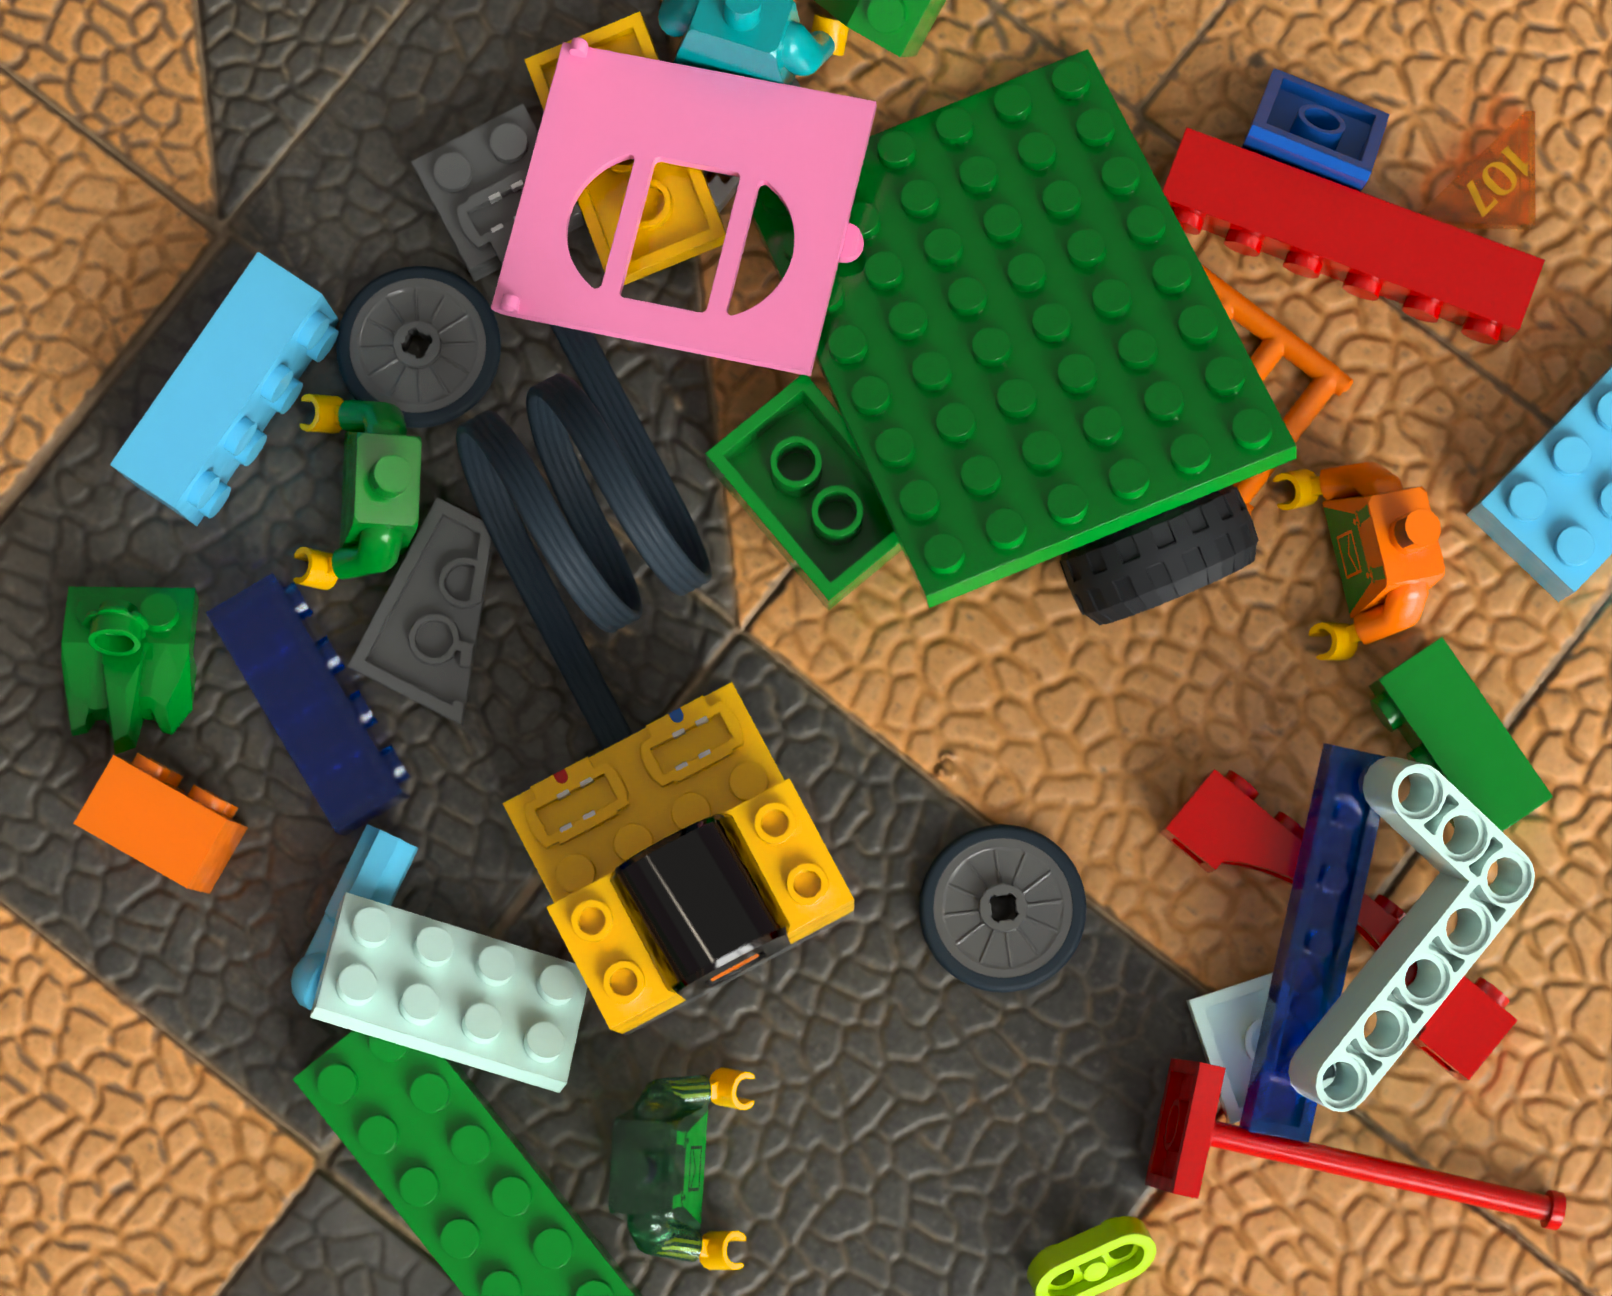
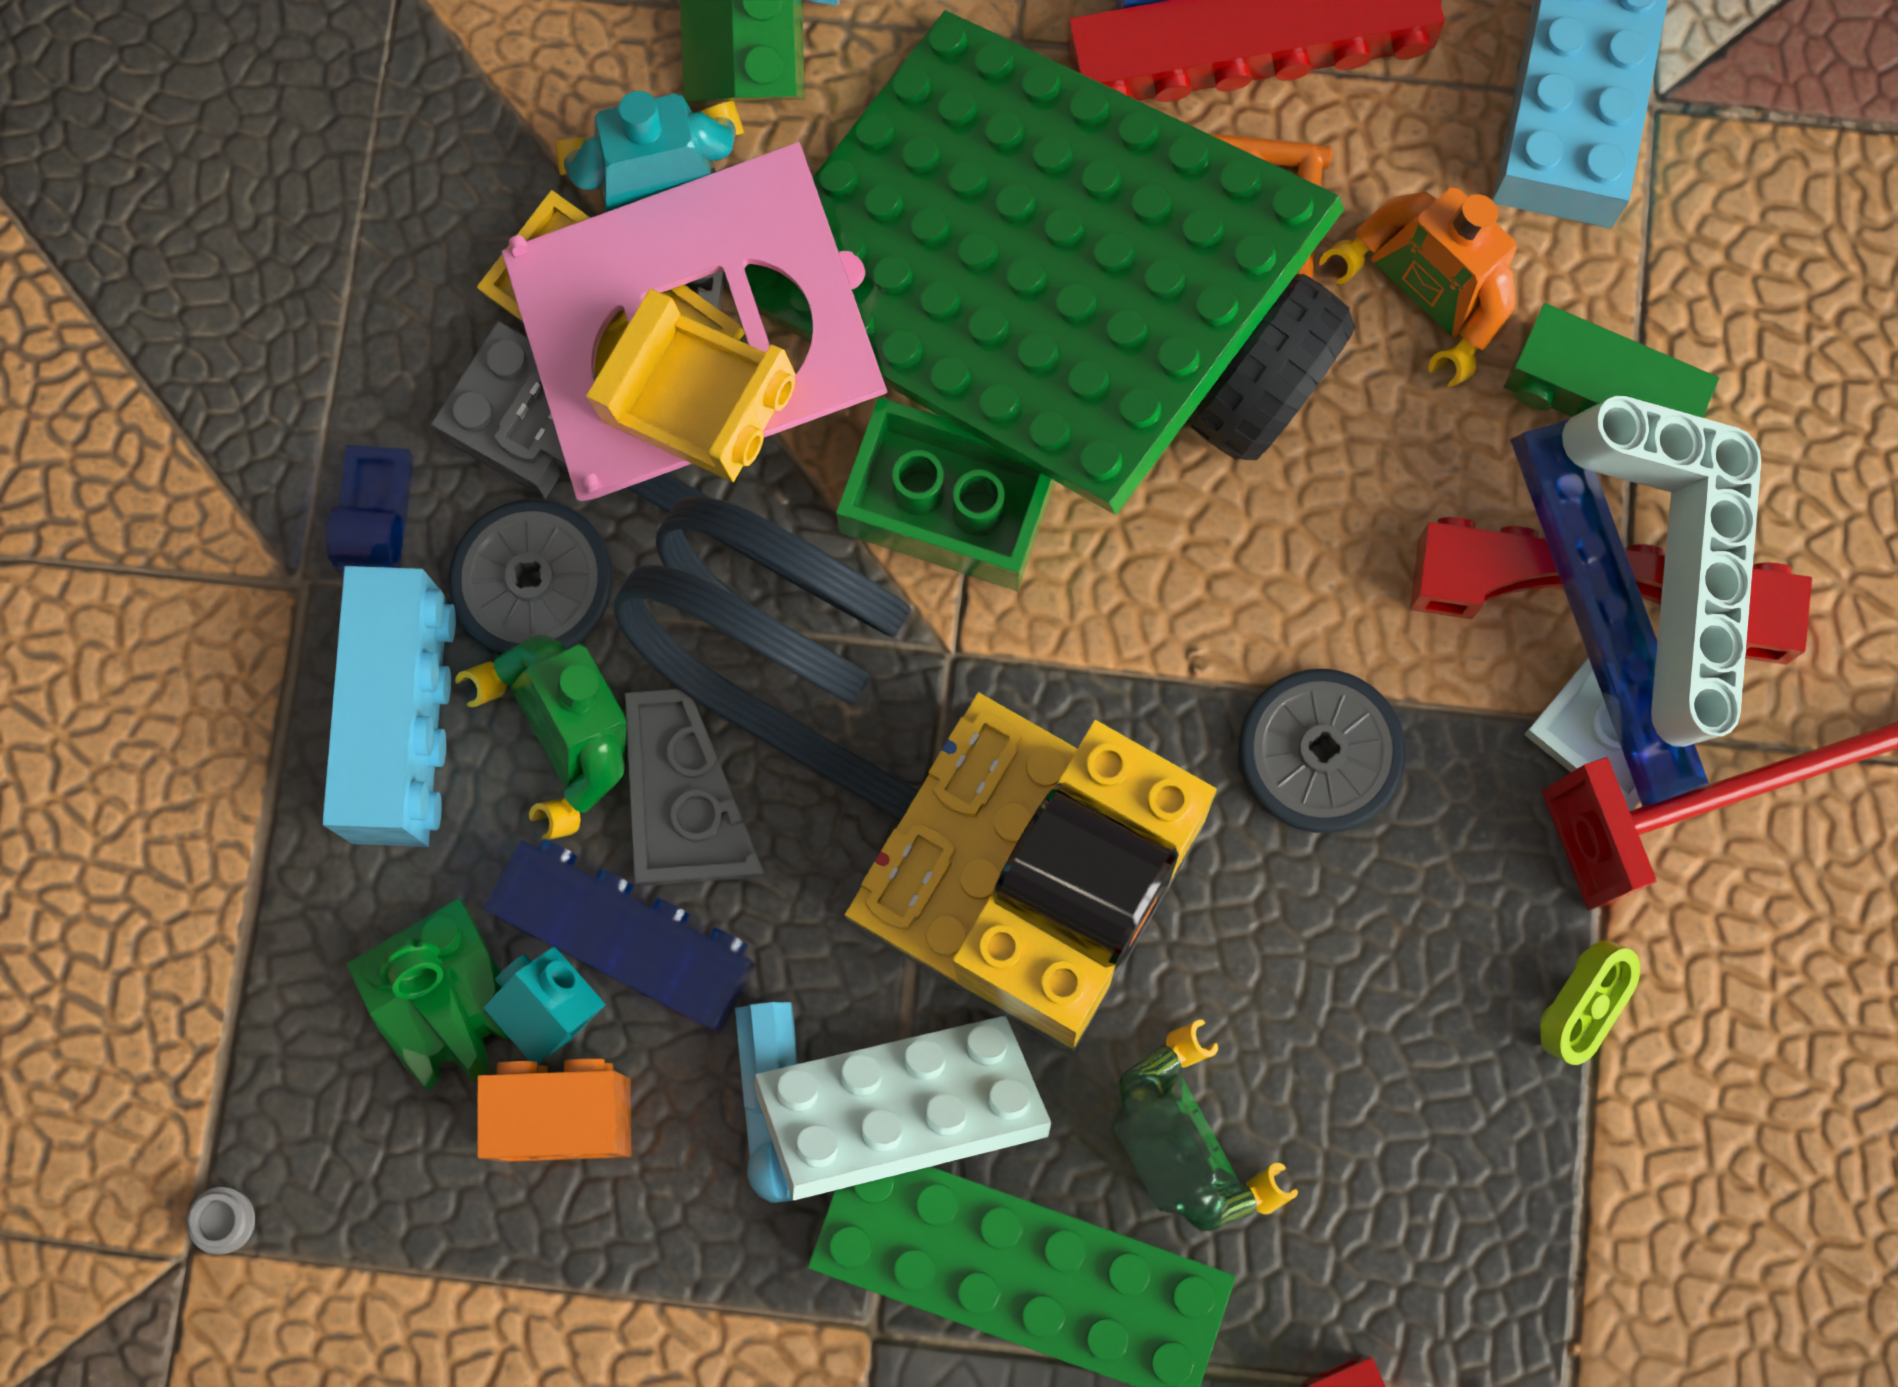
camera: 30 degrees left, 5 degrees down
(208, 723) = (542, 1004): none -> teal brick
(313, 212) = (372, 508): none -> clear blue plate
(644, 272) = (691, 388): none -> yellow panel

